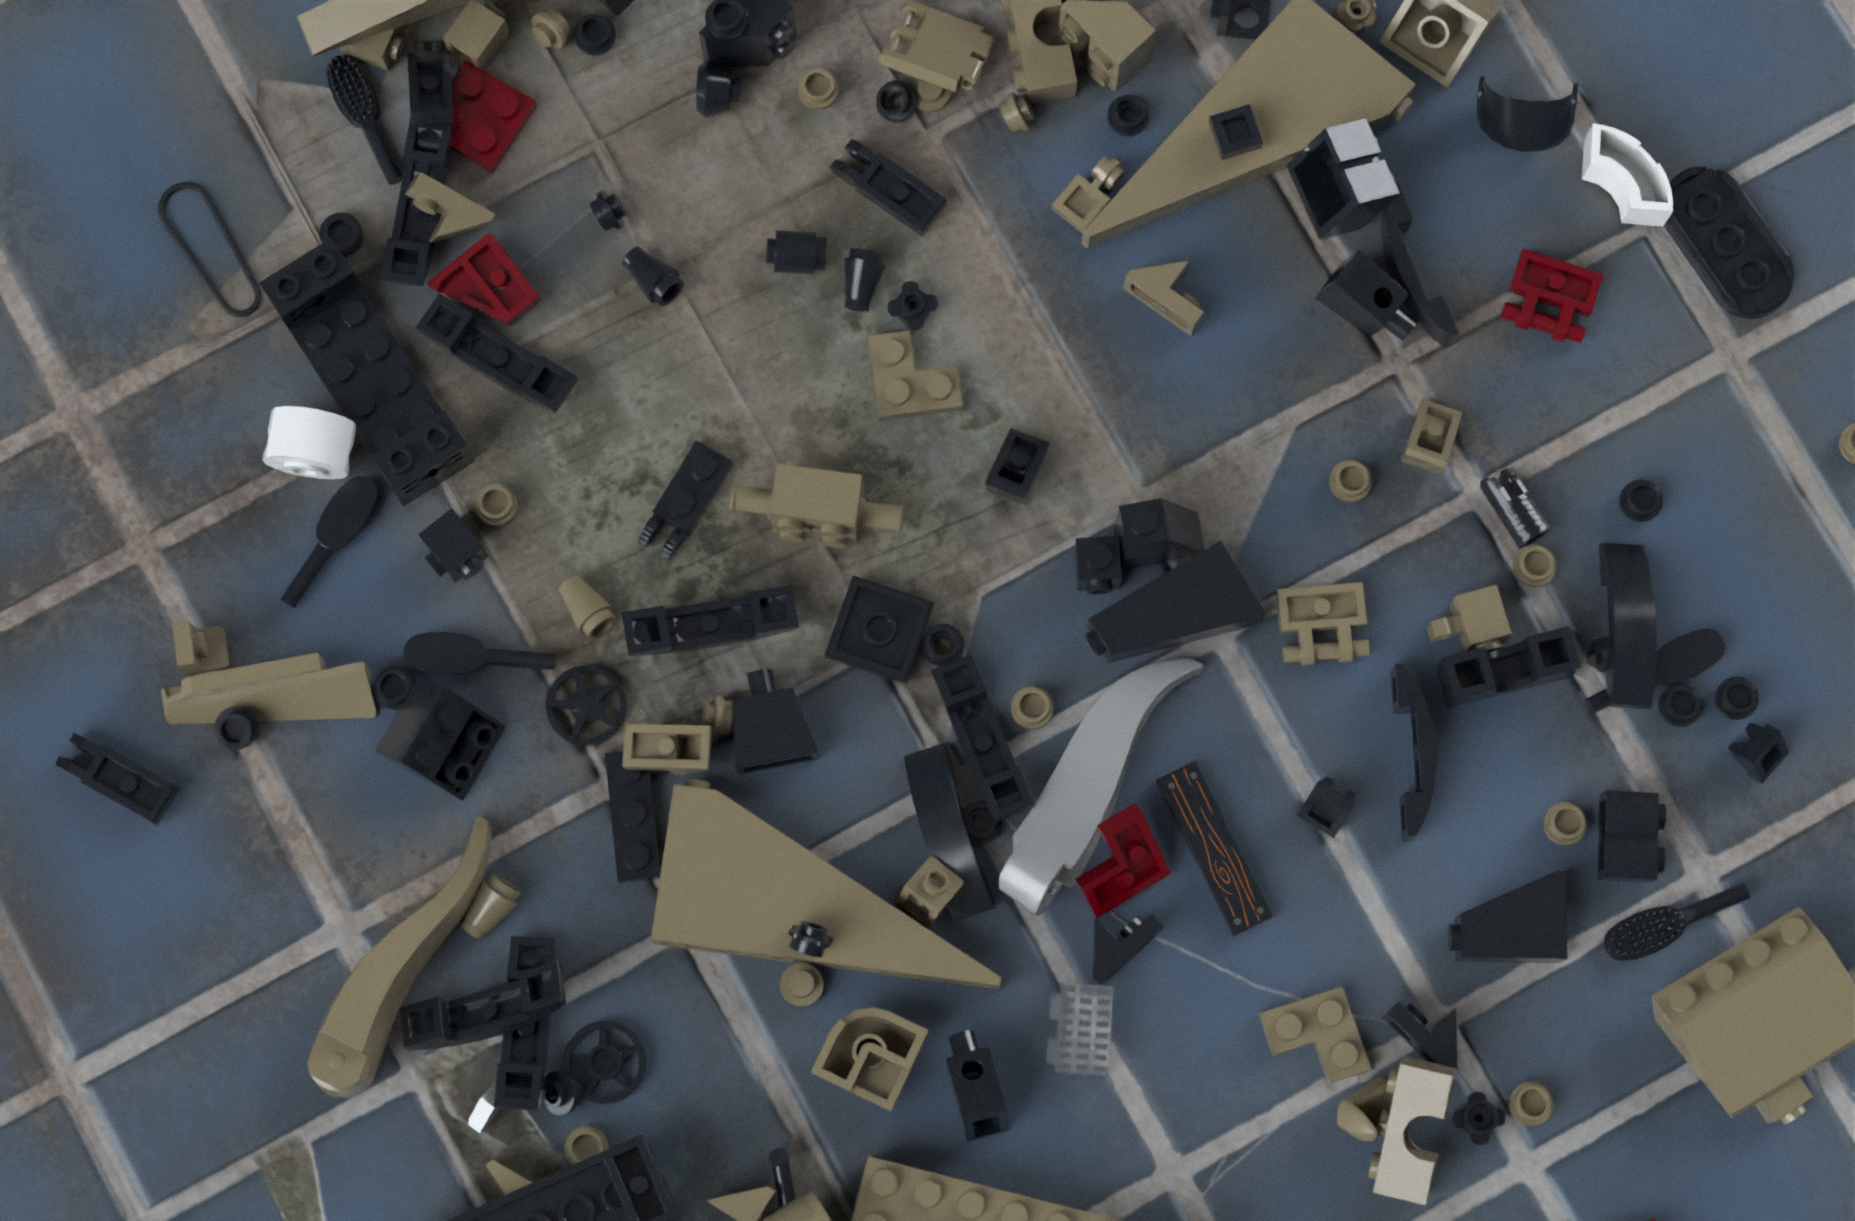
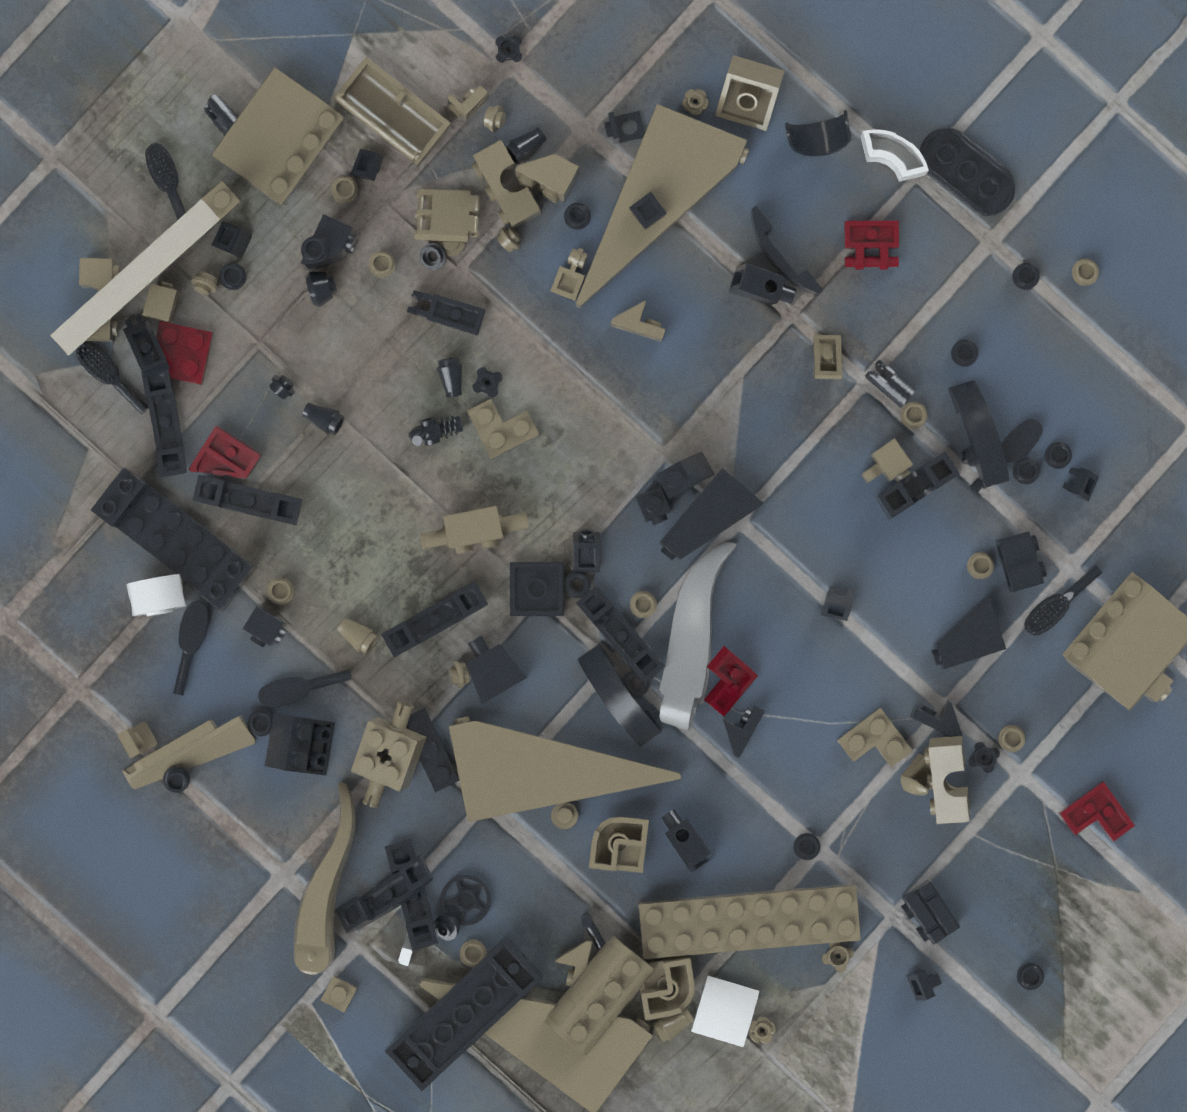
camera: 15 degrees left, 10 degrees up
(122, 780) = (120, 833): black hinge -> none
(185, 185) = (40, 502): black piece -> none
(344, 231) = (124, 455): black tile -> none
(359, 1140) = (339, 993): none -> dark tan plate
(458, 212) = (191, 421): dark tan slope -> none
(490, 906) = (366, 832): dark tan cone -> none
(541, 789) = (373, 760): none -> dark tan brick
(586, 705) = (377, 693): black wheel -> none
(667, 747) = (437, 705): dark tan slope -> none
(687, 497) = (393, 546): black hinge -> none
(796, 252) = (405, 373): black brick -> none
(804, 347) = (431, 430): none -> black piece
(809, 939) = (561, 791): black plate -> none
(928, 892) = (621, 737): dark tan bracket -> none
(973, 599) = (586, 551): none -> black bracket
(1017, 466) = (585, 461): black slope -> none
(1082, 1030) = (737, 786): clear brick -> none
(1158, 1161) = (806, 846): none -> black plate
(1214, 848) = (779, 651): black tile -> none
(1322, 609) = (795, 486): dark tan plate -> none
(1342, 178) = (722, 217): black piece -> none
(1350, 481) = (787, 400): dark tan plate -> none
(1409, 699) = (863, 523): black slope -> none
(1768, 420) = (1025, 276): none -> black plate

